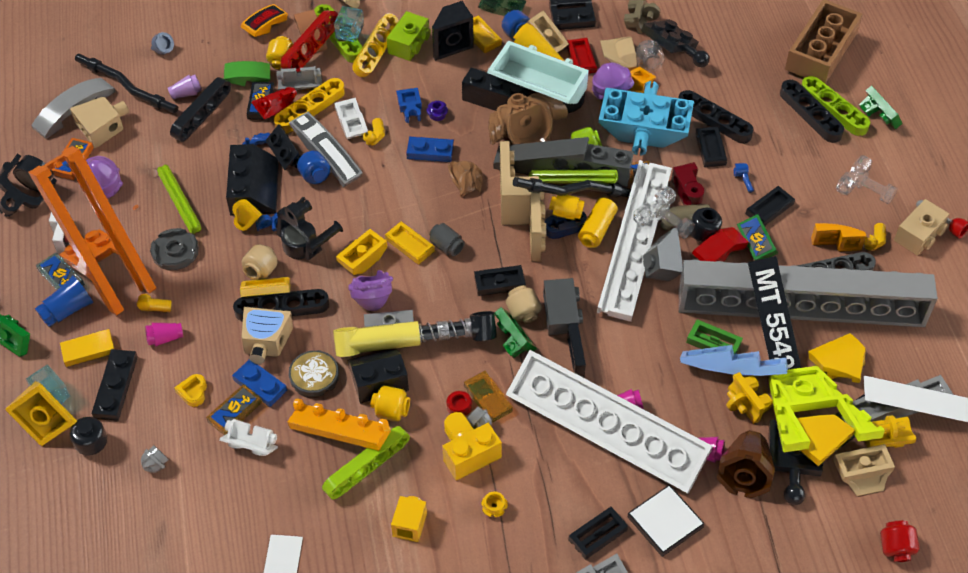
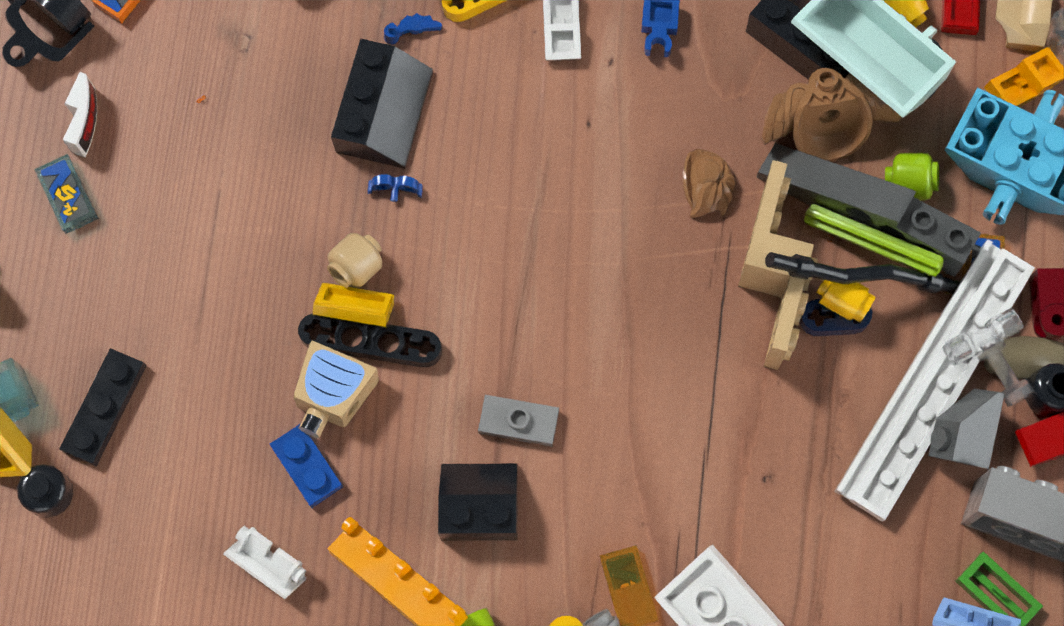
camera: 20 degrees right, 20 degrees up
(64, 302) = (59, 250): blue plant -> none
(86, 347) = (78, 333): yellow tile -> none
(97, 245) = (104, 171): orange piece -> none
(106, 174) = (158, 36): medium lavender hair -> none
(147, 303) = (185, 288): yellow arm -> none
(153, 460) = (128, 553): light grey plate -> none
(162, 333) = (188, 342): dark pink cone -> none
(174, 249) = (239, 194): dark grey tile -> none
(179, 199) = (266, 105): lime axle -> none
(192, 390) = (208, 449): yellow tile -> none
(236, 407) = (259, 500): tile -> none
(245, 214) = (354, 168): yellow tile -> none
(283, 148) = (441, 54): black hinge -> none
(298, 235) = (427, 230): black piece -> none
(313, 167) = (479, 106): blue head -> none
(313, 373) = (387, 473): tile -> none
(318, 139) = (506, 75): slope -> none
(354, 340) = (455, 442): piece -> none
(362, 252) = (509, 282): yellow slope -> none
(371, 291) = (505, 358): medium lavender hair -> none
(377, 134) = (594, 66): yellow arm -> none
(390, 403) = (481, 565): yellow head -> none
(409, 242) = (588, 282): yellow tile -> none
(430, 149) = (668, 116): blue plate -> none
(437, 110) = (696, 52): dark purple plate -> none
(446, 239) = (644, 296): dark grey brick -> none
(459, 402) = (583, 588): red tile -> none
(498, 280) = (704, 393): black plate -> none
(519, 340) = (703, 508): green hinge -> none
(523, 304) = (726, 449): tan head -> none
(561, 305) = (782, 472): dark grey brick -> none
(576, 350) = (781, 554): black tile -> none
(597, 222) = (885, 333): yellow brick -> none
(611, 76) = (993, 68): medium lavender hair -> none

